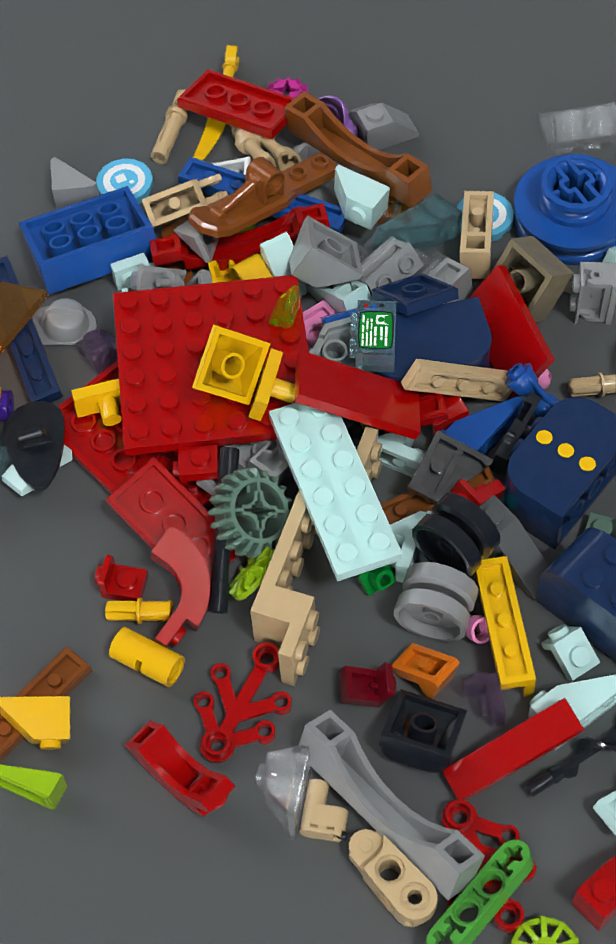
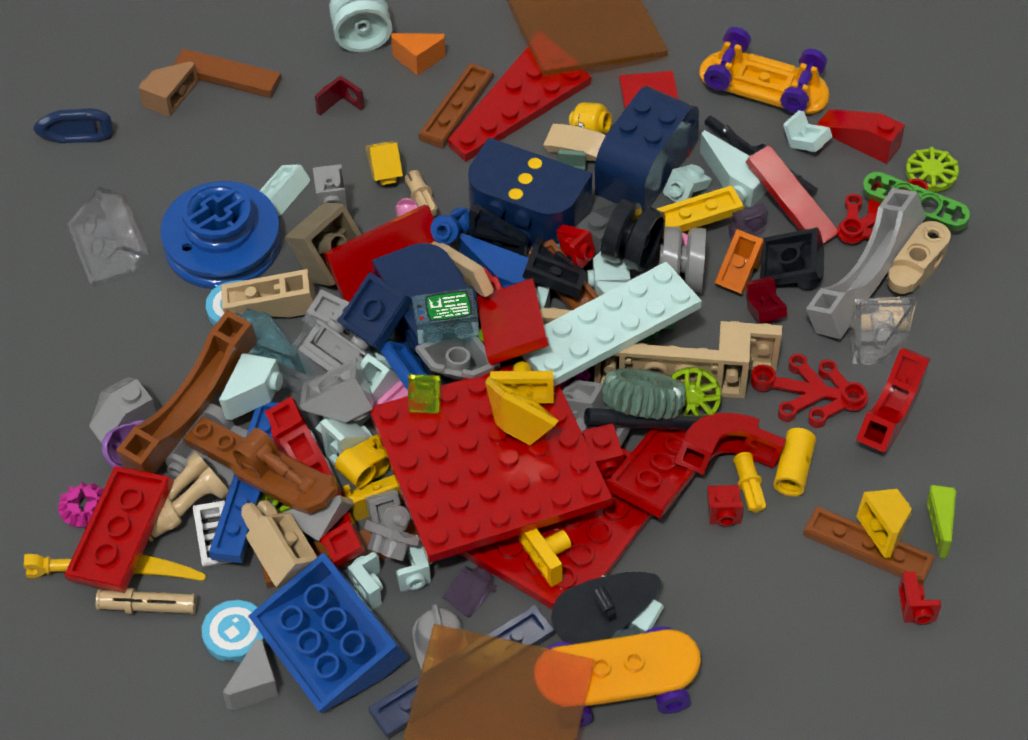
camera: 105 degrees left, 5 degrees down
(583, 363) = (405, 205): none -> bright pink hinge

